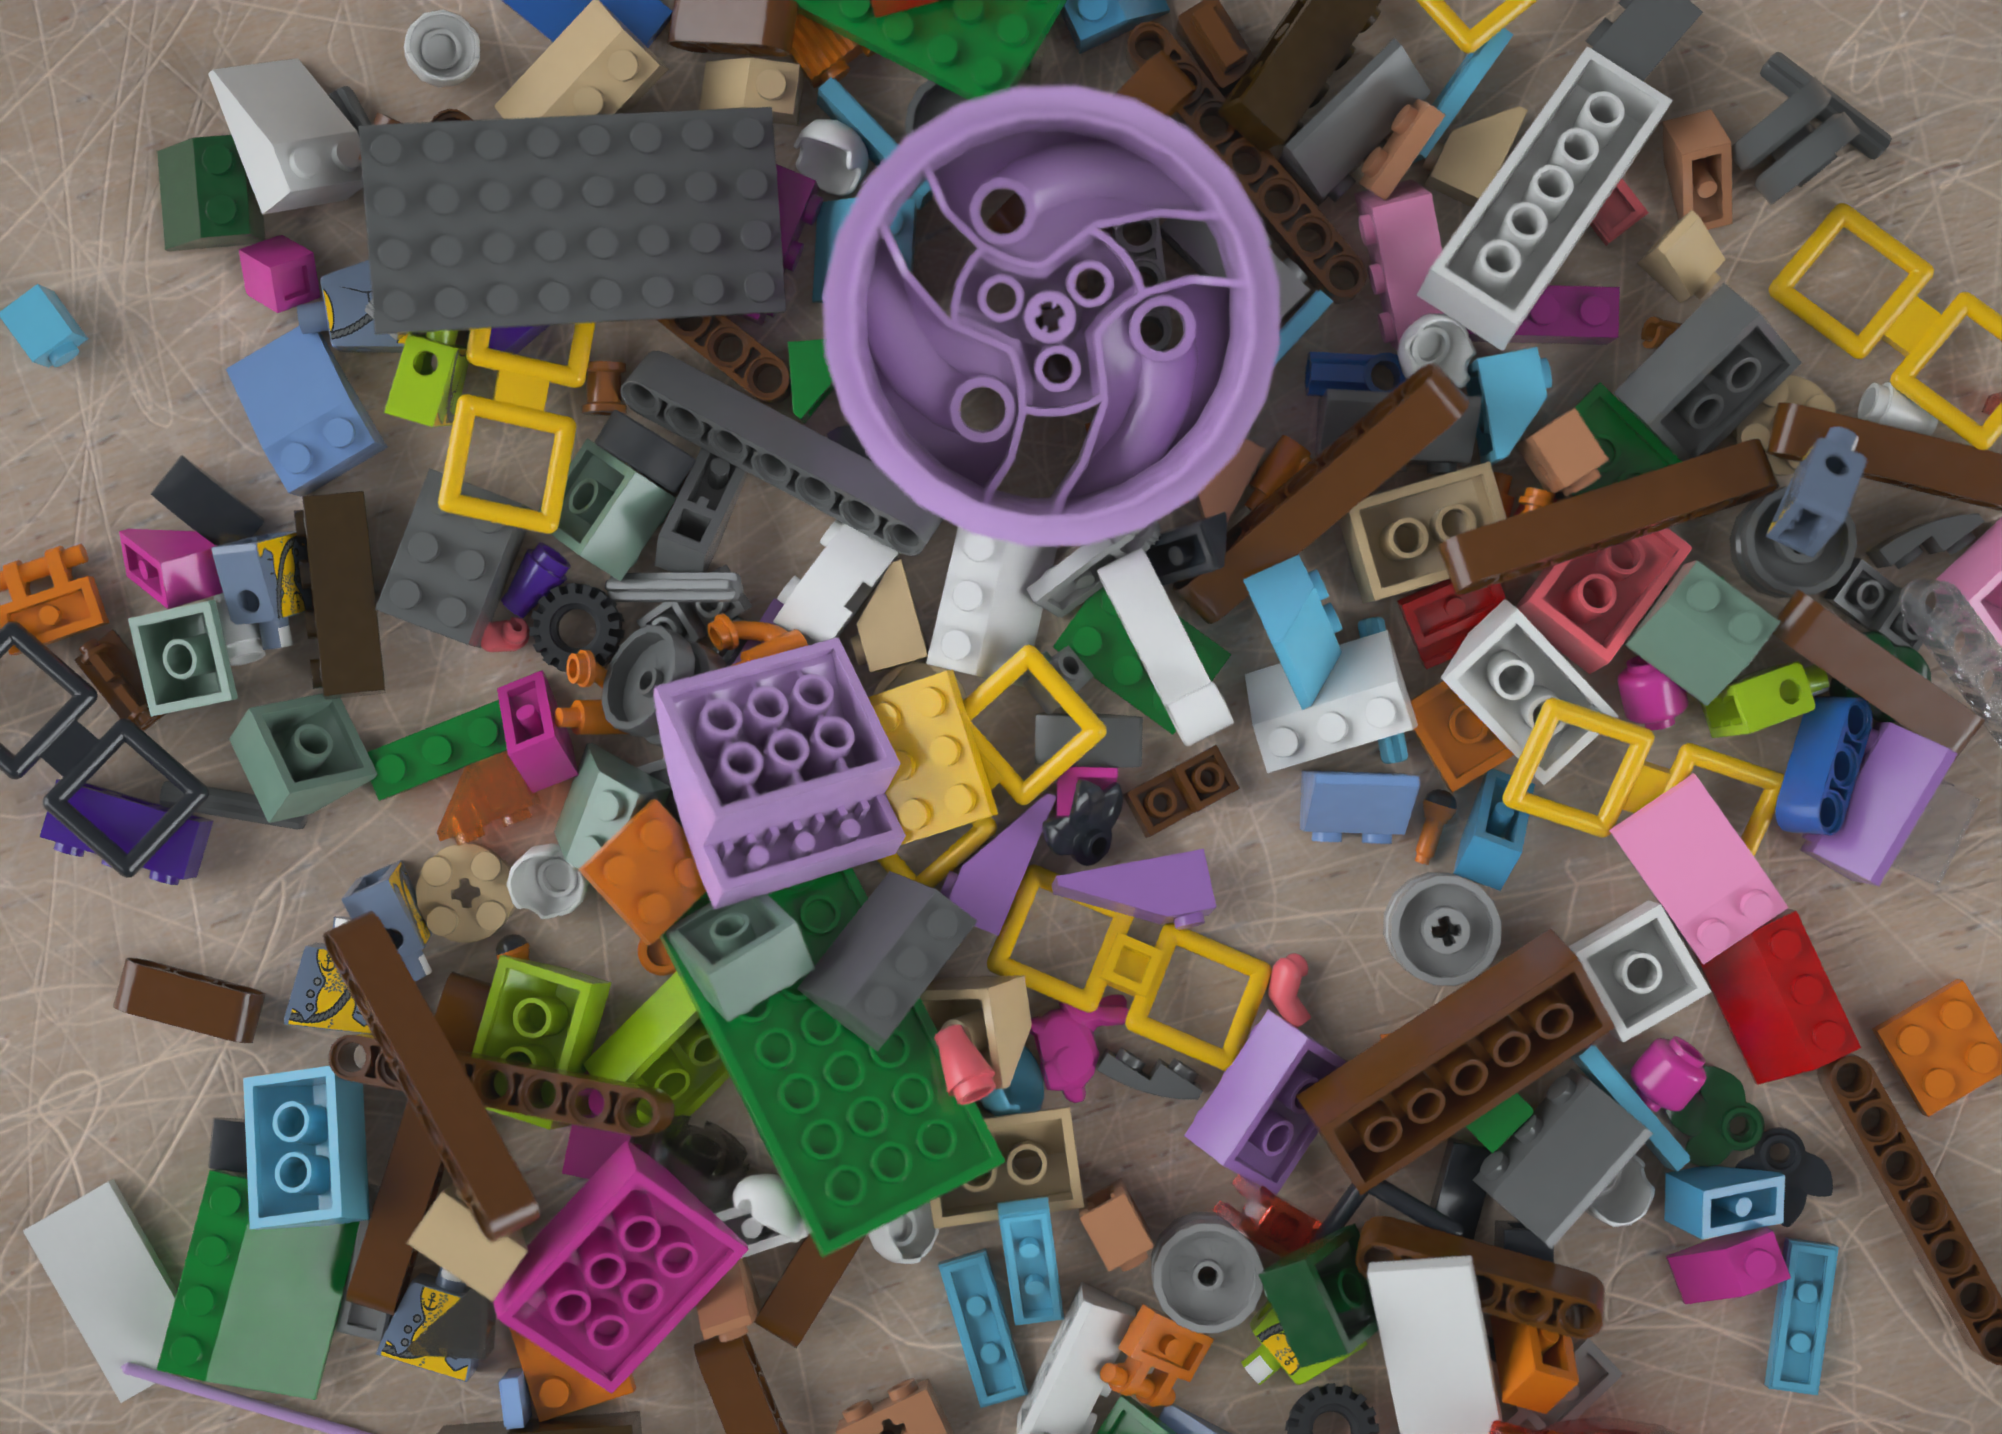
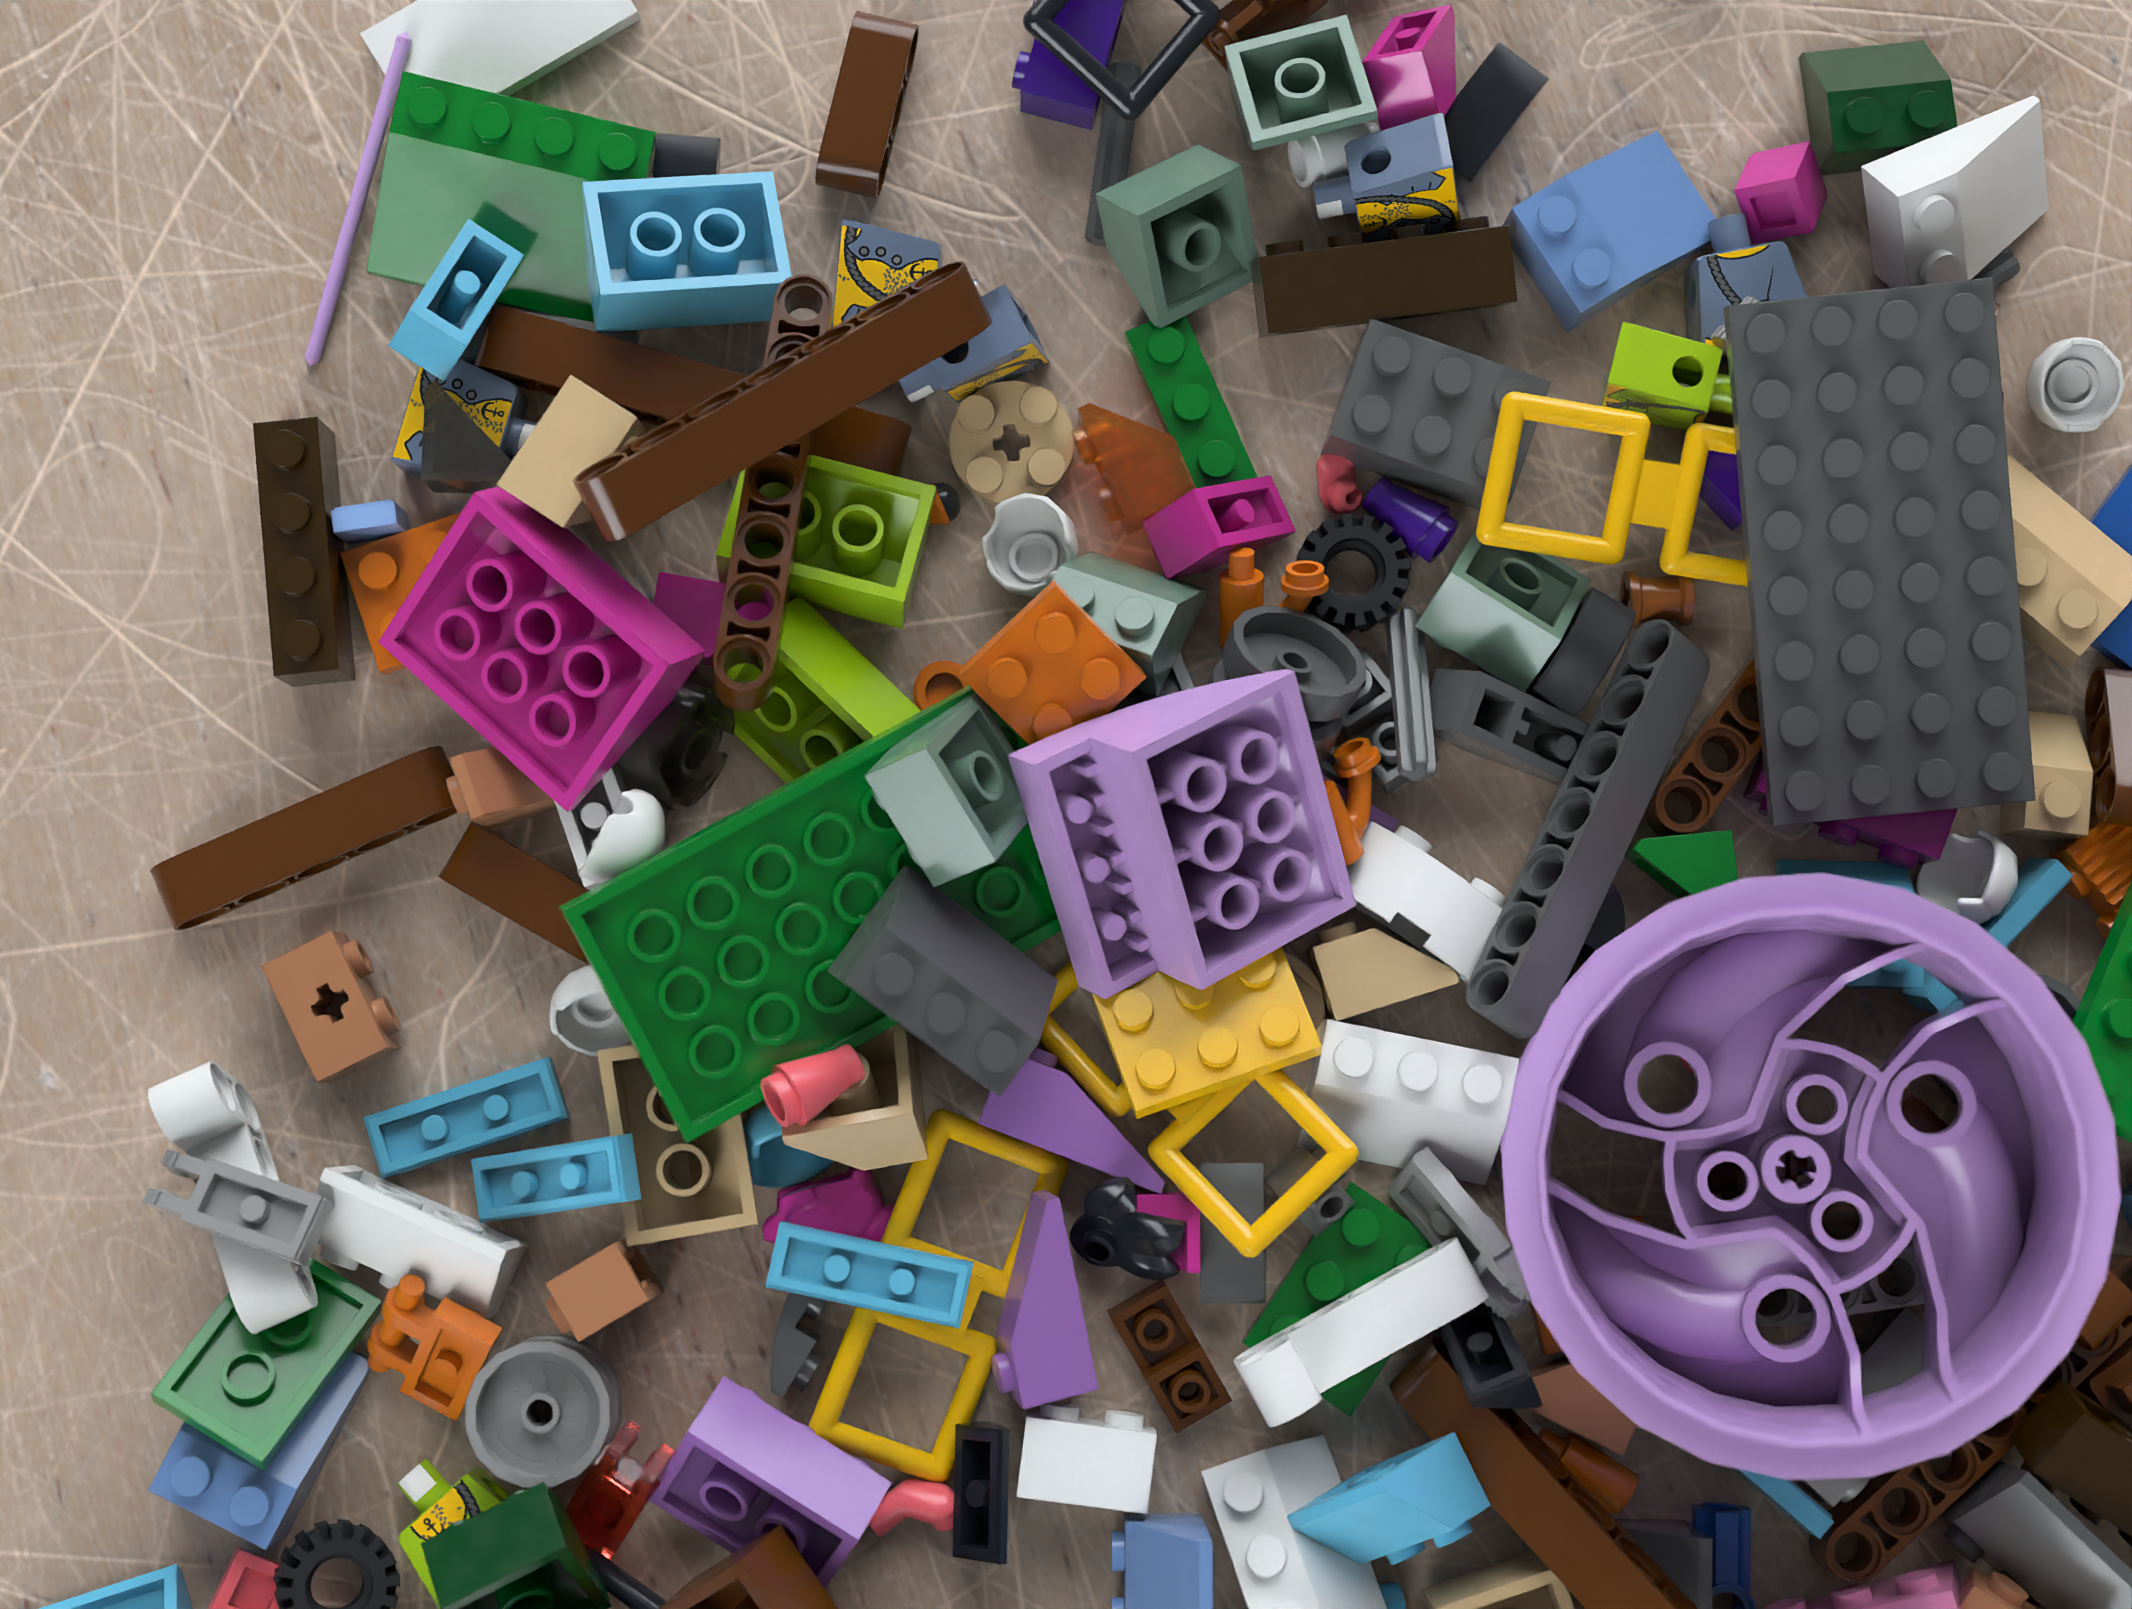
camera: 85 degrees right, 5 degrees down
(342, 1329) = (455, 300): none -> medium azure brick
(1110, 1022) = (869, 1274): none -> medium azure tile
(1256, 858) = (1087, 1459): none -> white brick
(1278, 940) = (981, 1492): none -> black slope

